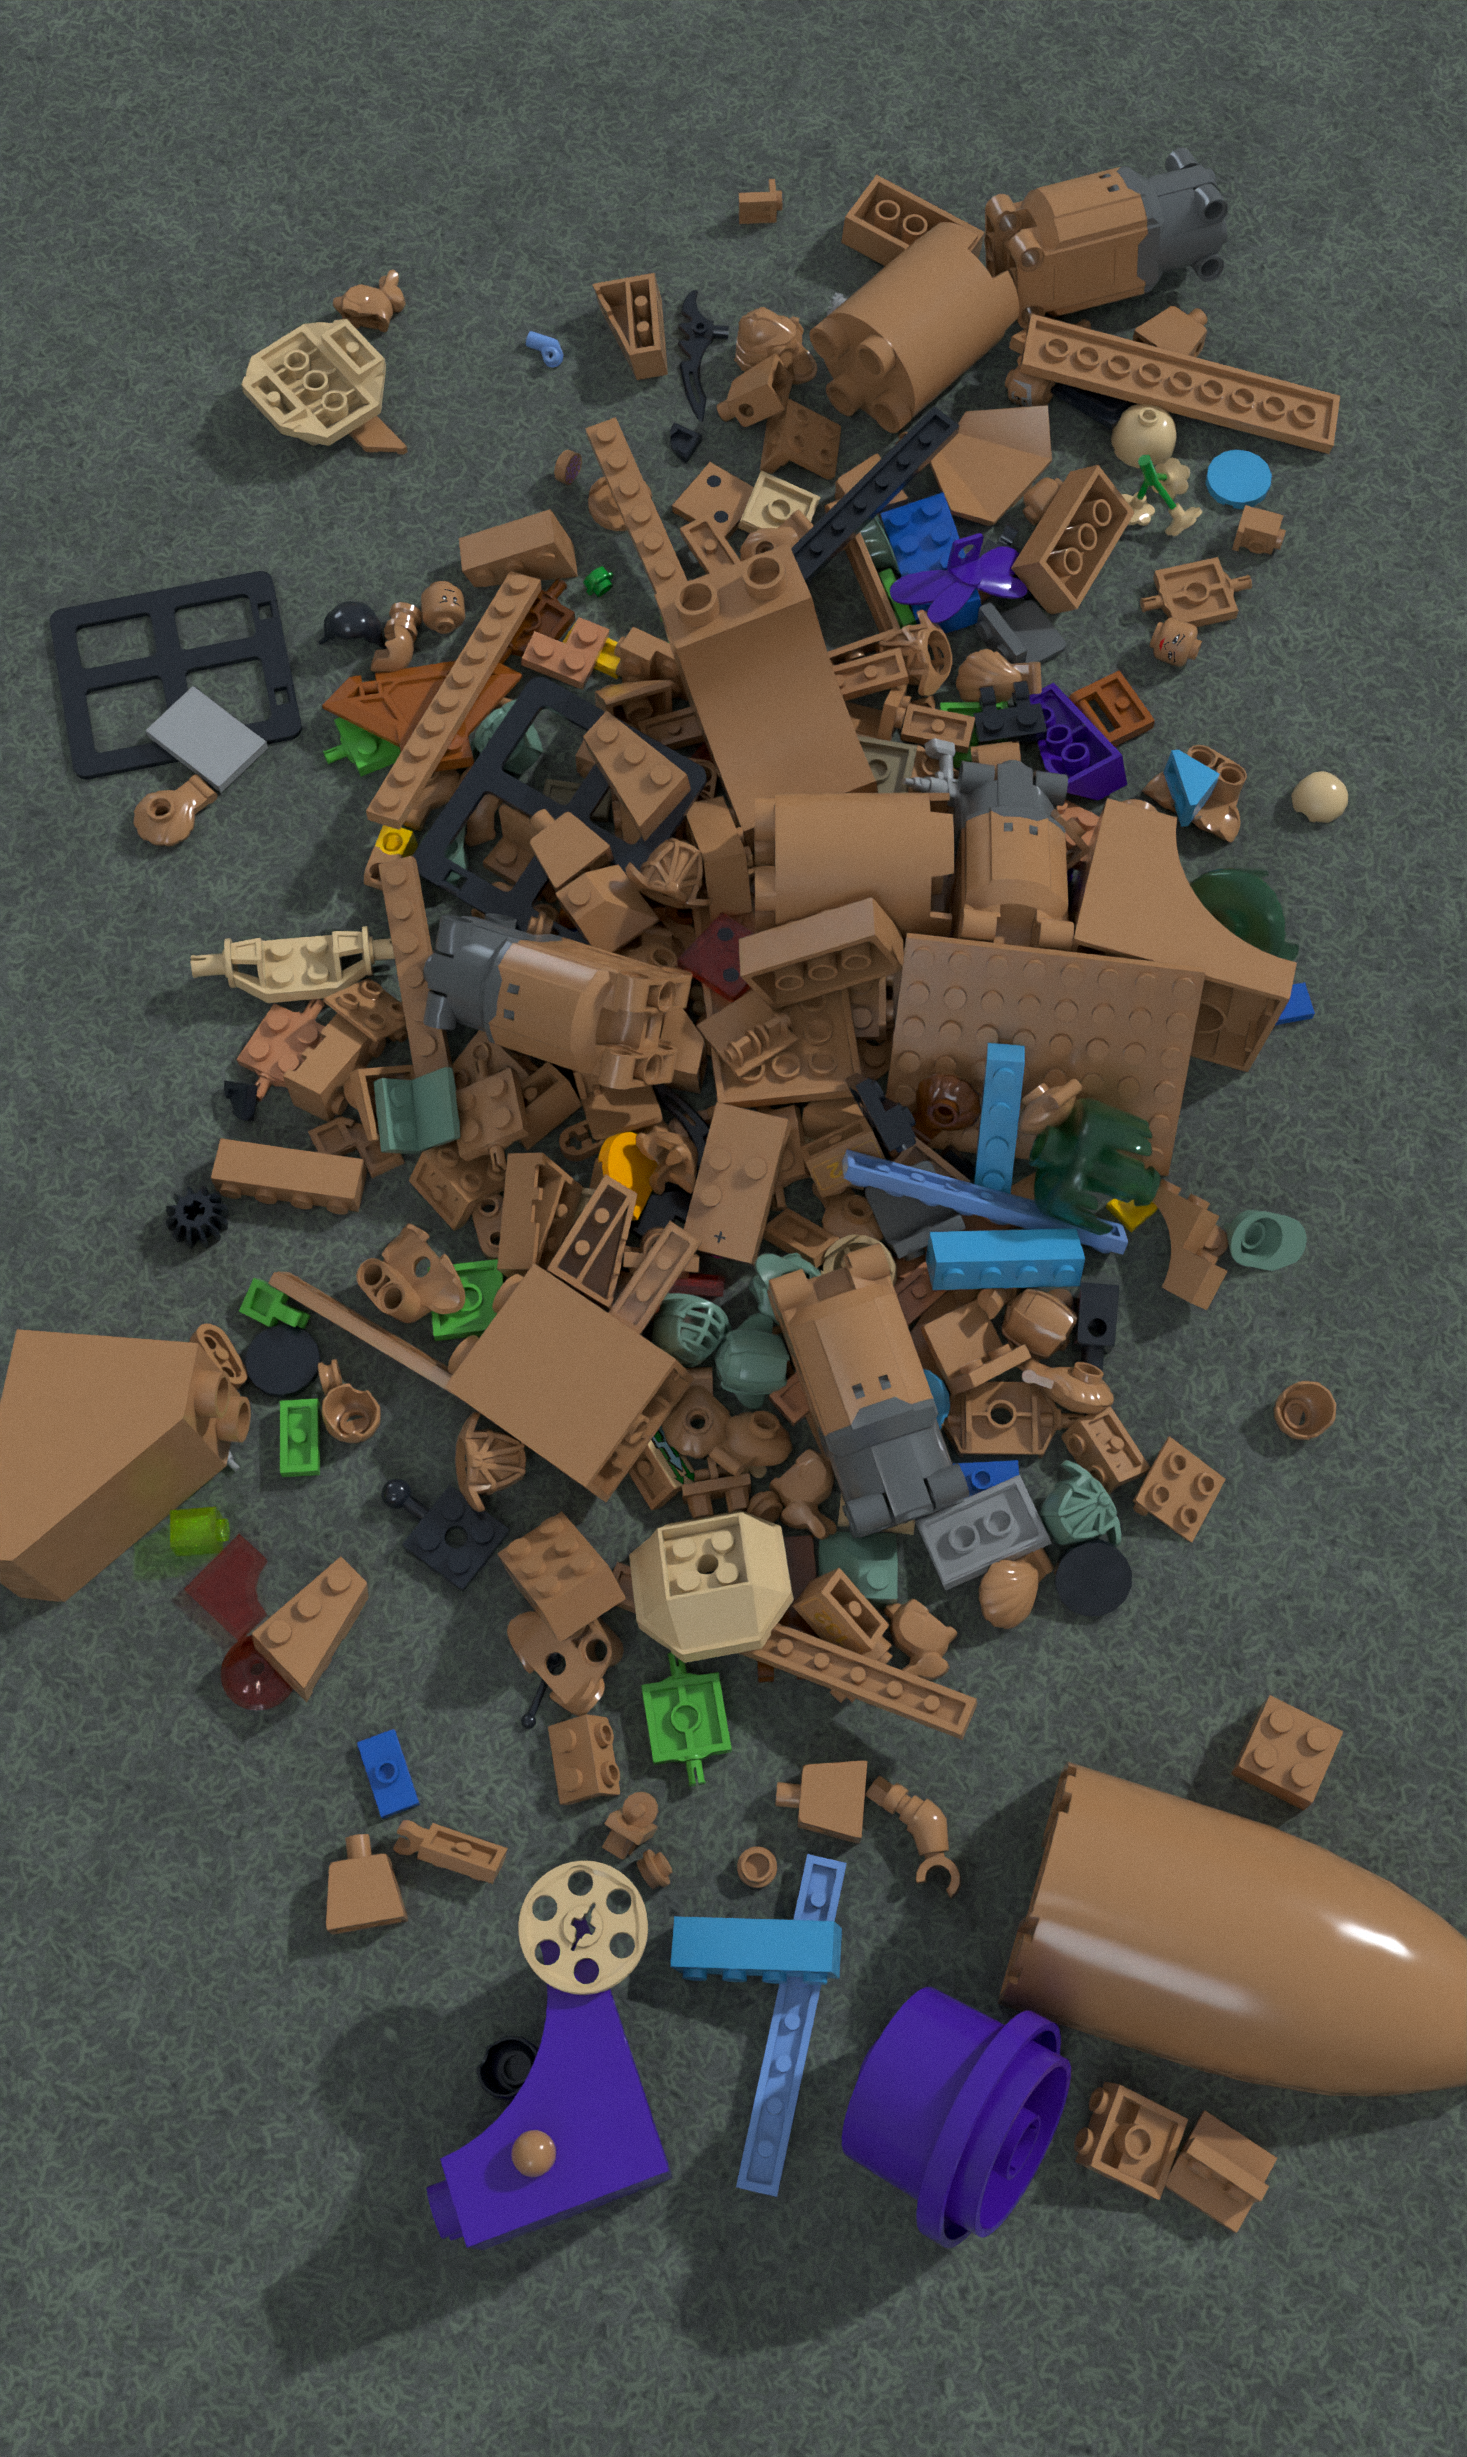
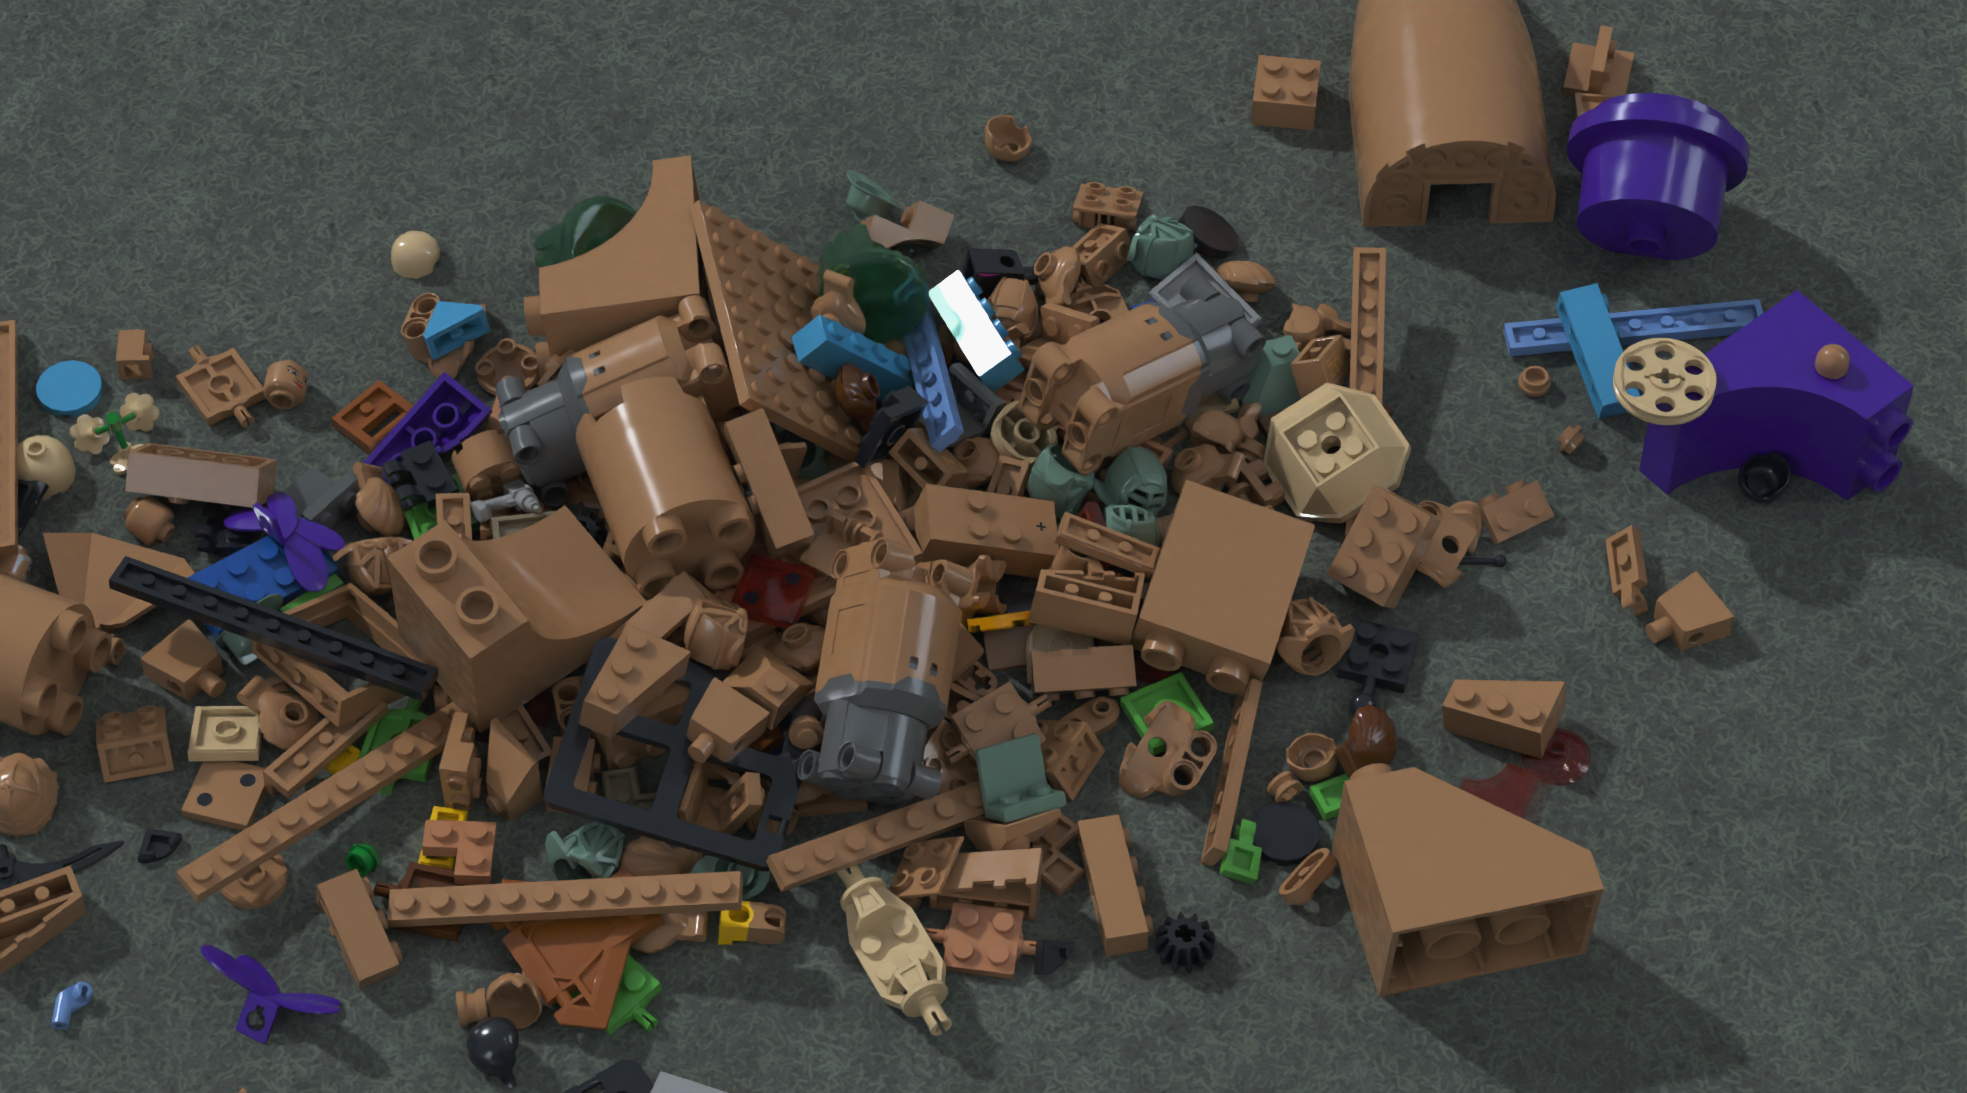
camera: 110 degrees left, 15 degrees down
(341, 1475) = (1370, 740): none -> reddish brown animal
(388, 1773) = (1590, 636): blue plate -> none
(442, 607) = (442, 976): medium nougat head -> none
(498, 868) = (740, 802): none -> medium nougat plate
(503, 475) = (264, 992): none -> dark purple piece
(567, 466) = (227, 928): medium nougat tile -> none
(631, 1824) = (1552, 453): medium nougat hips -> none
(686, 1719) = (1448, 455): bright green plate -> none
(757, 393) = (93, 779): medium nougat torso -> none
(828, 1798) = (1460, 347): medium nougat torso -> none
(926, 1825) = (1455, 282): medium nougat piece -> none

